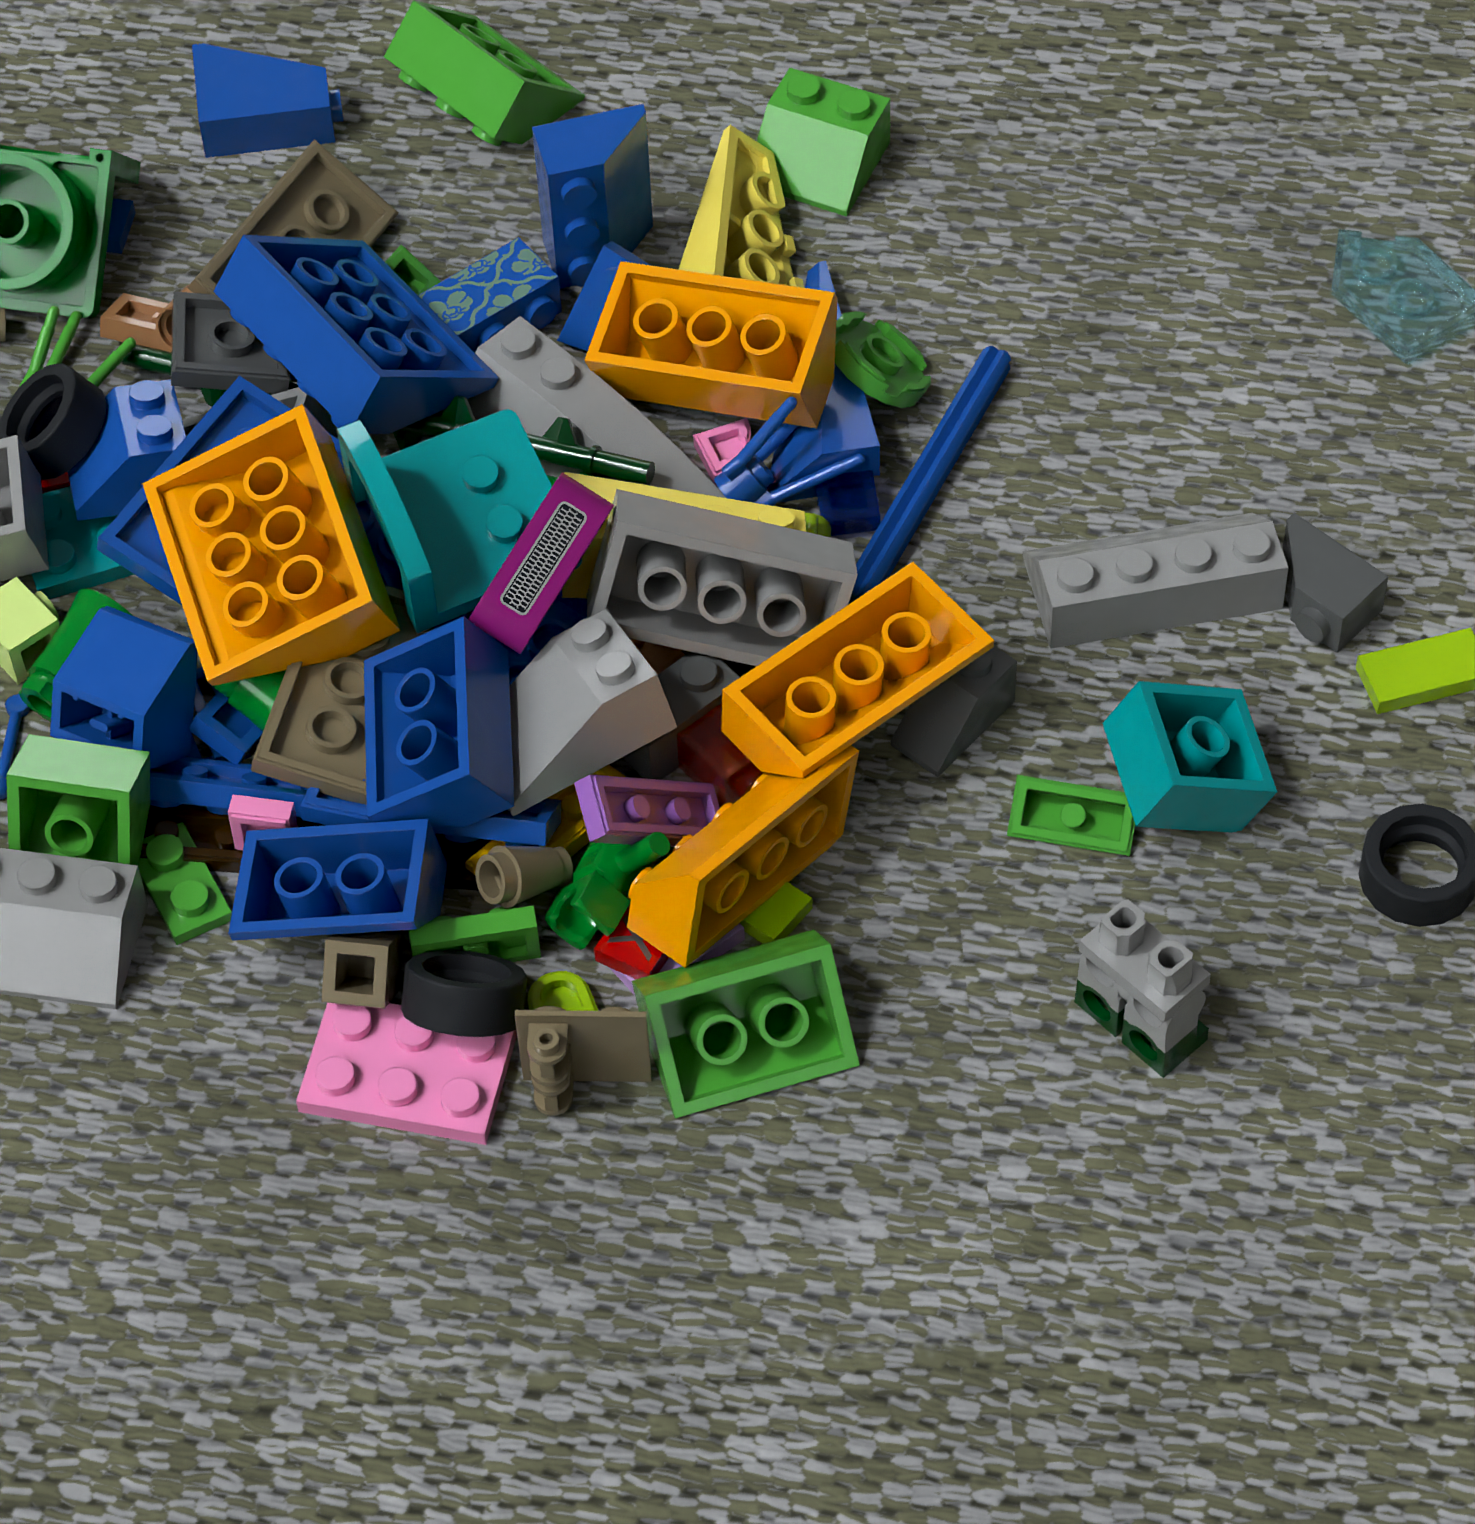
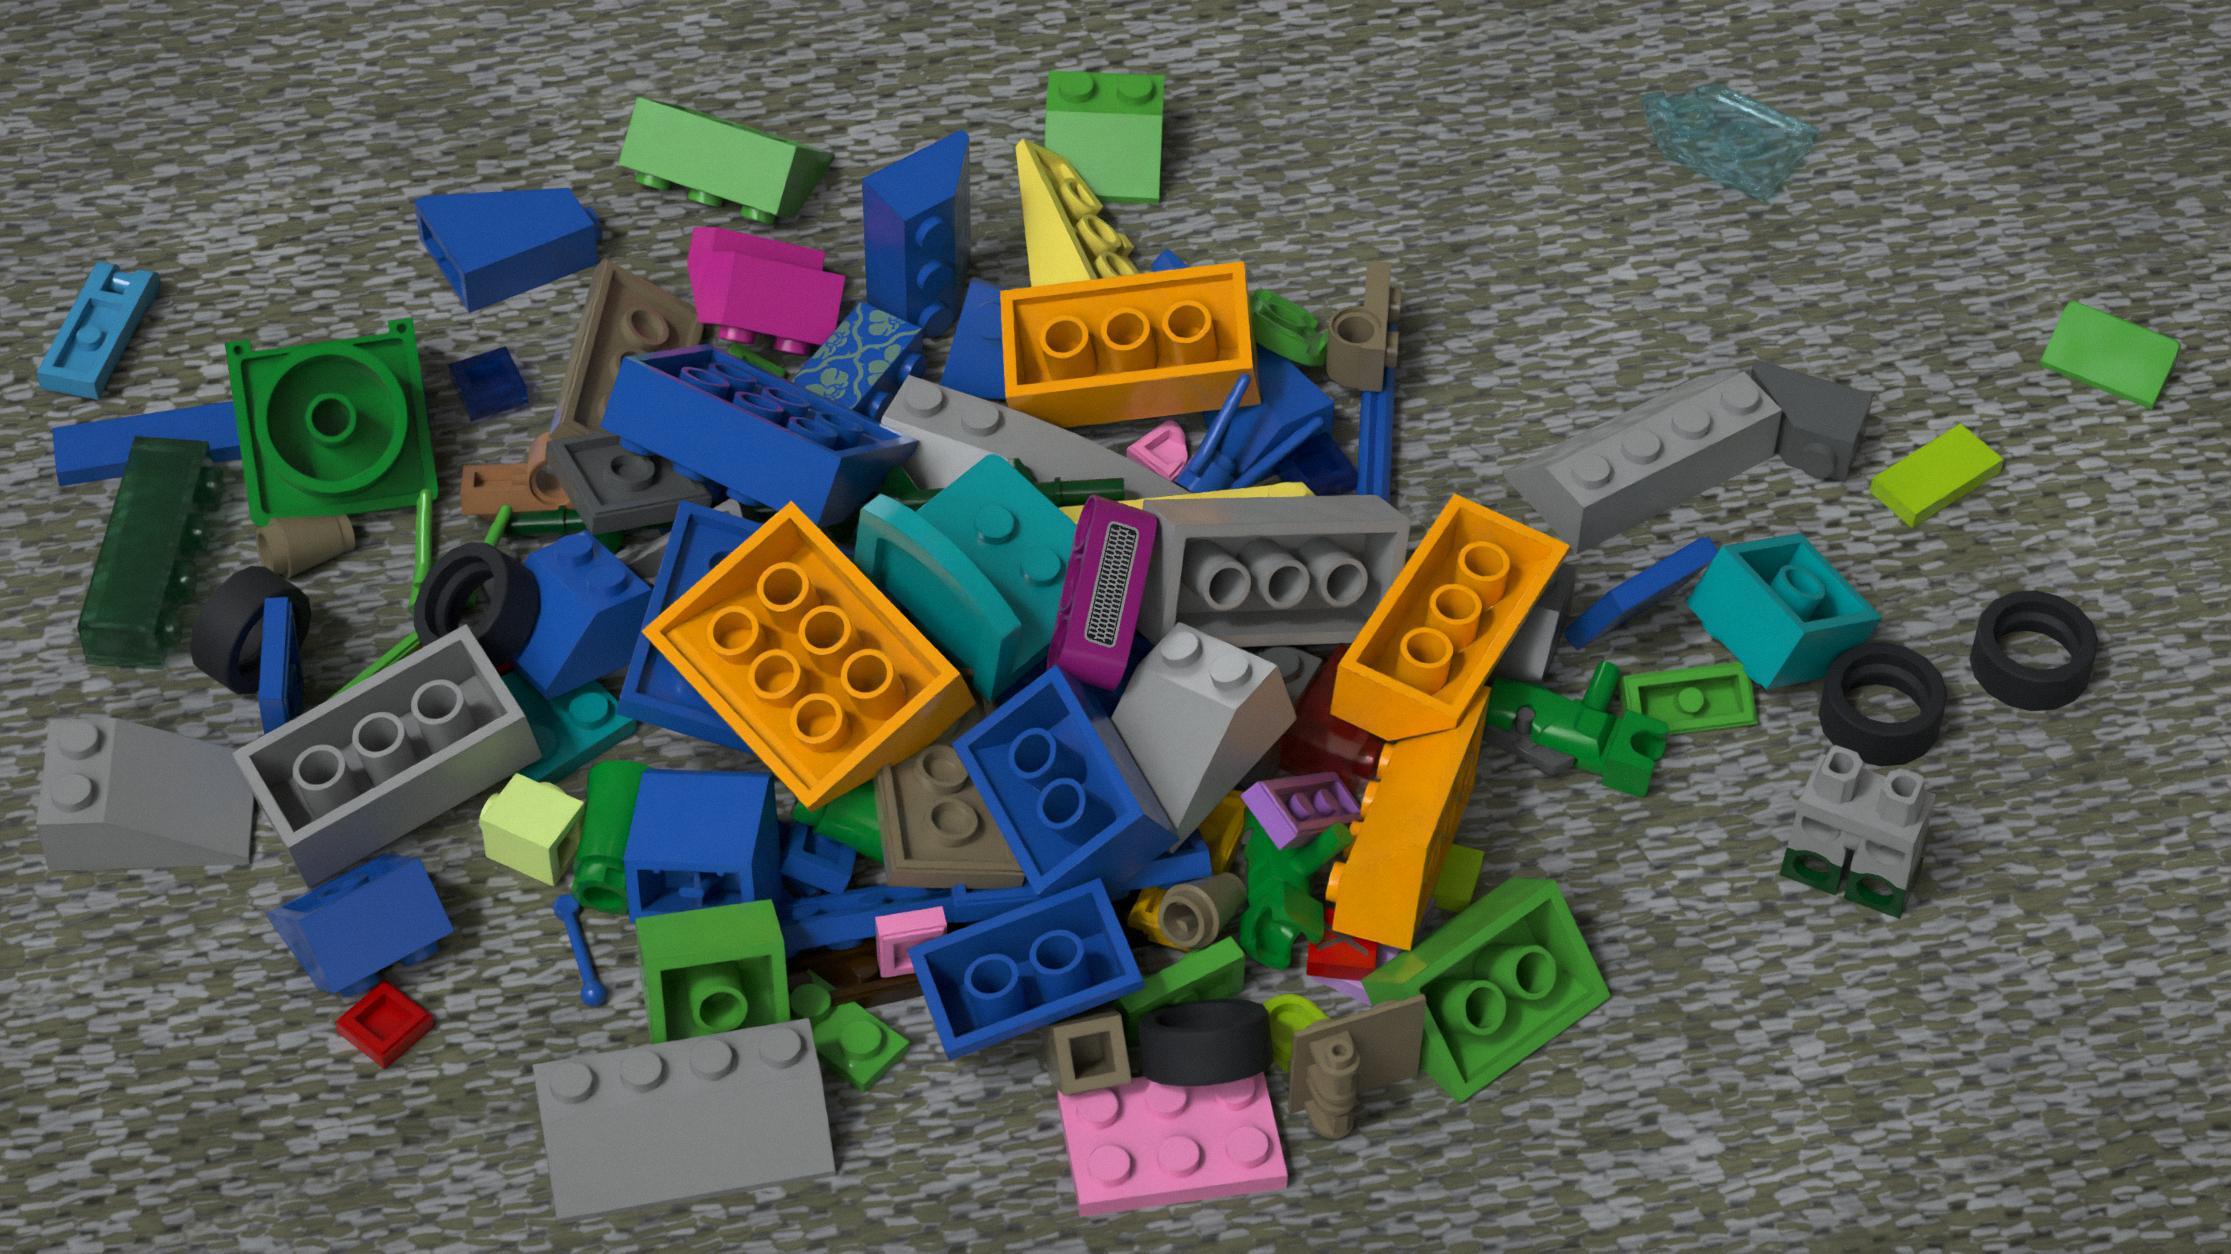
camera: 25 degrees left, 5 degrees down
(182, 225) = (488, 383): none -> clear blue plate
(441, 204) = (763, 289): none -> dark pink piece
(942, 393) = (1359, 335): none -> dark tan plate
(955, 817) = (1576, 732): none -> green piece
(1065, 702) = (1641, 592): none -> blue tile
(1239, 911) = (1888, 666): none -> black tyre

